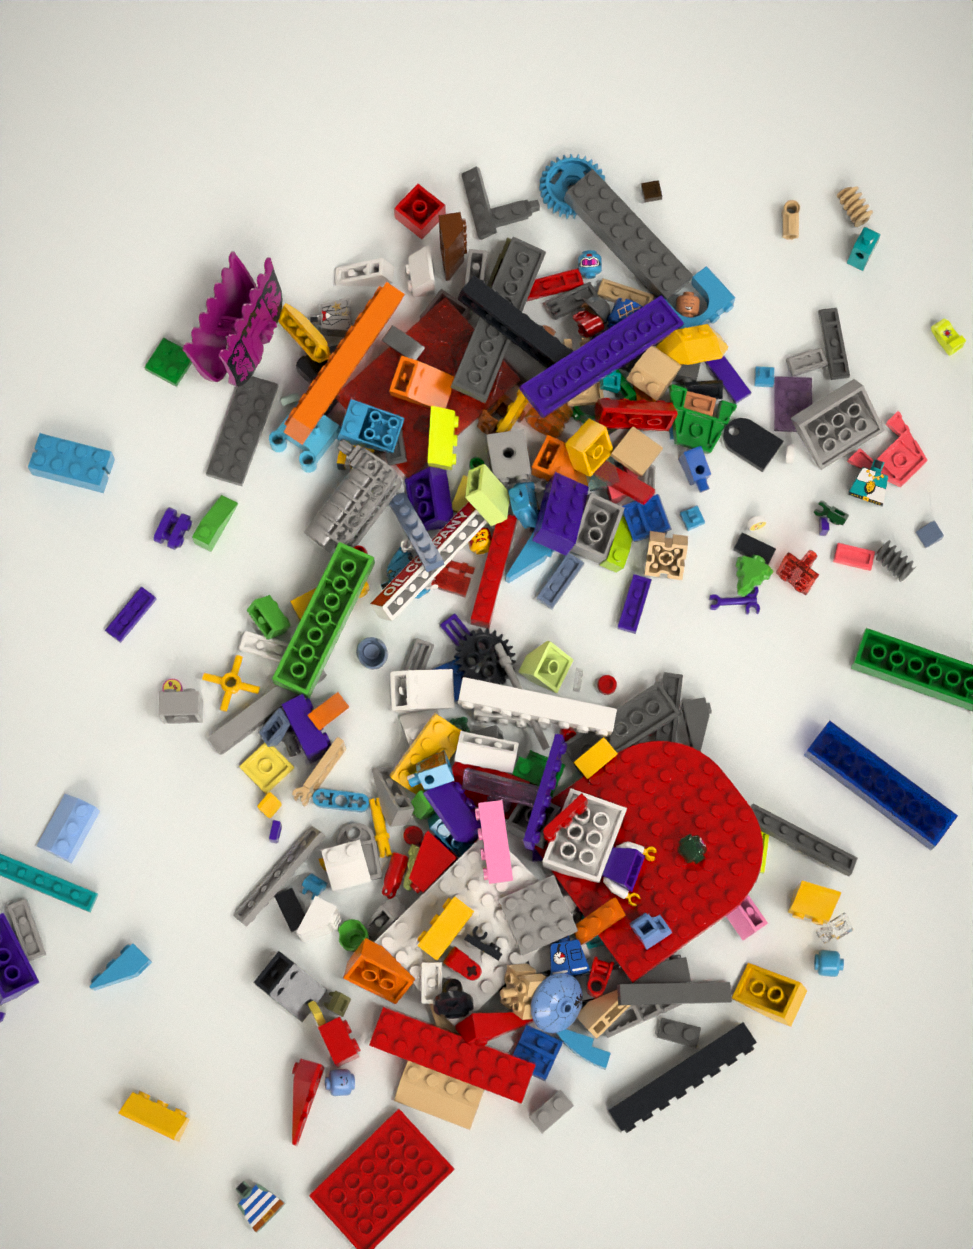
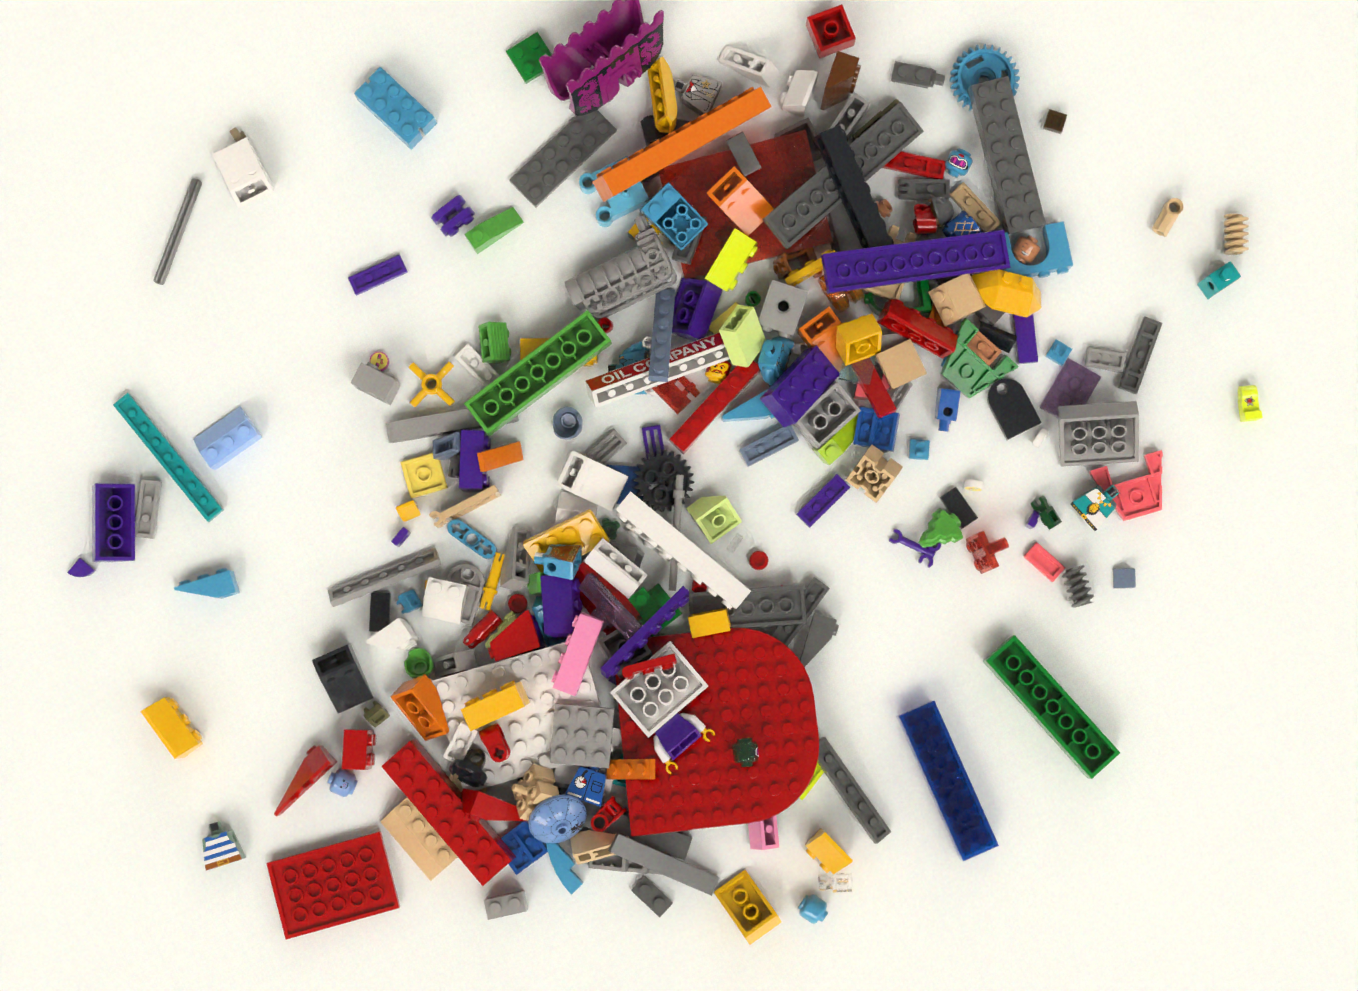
camera: 30 degrees right, 10 degrees up
(289, 399) = (618, 149): light aqua tile -> none
(317, 1014) = (353, 715): light yellow tile -> none
(479, 203) = (890, 50): dark grey plate -> none
(492, 949) = (525, 744): black plate -> none
(611, 382) = (913, 289): teal plate -> none
(650, 929) = (669, 802): medium blue brick -> none
(681, 1077) = (632, 936): black brick -> none

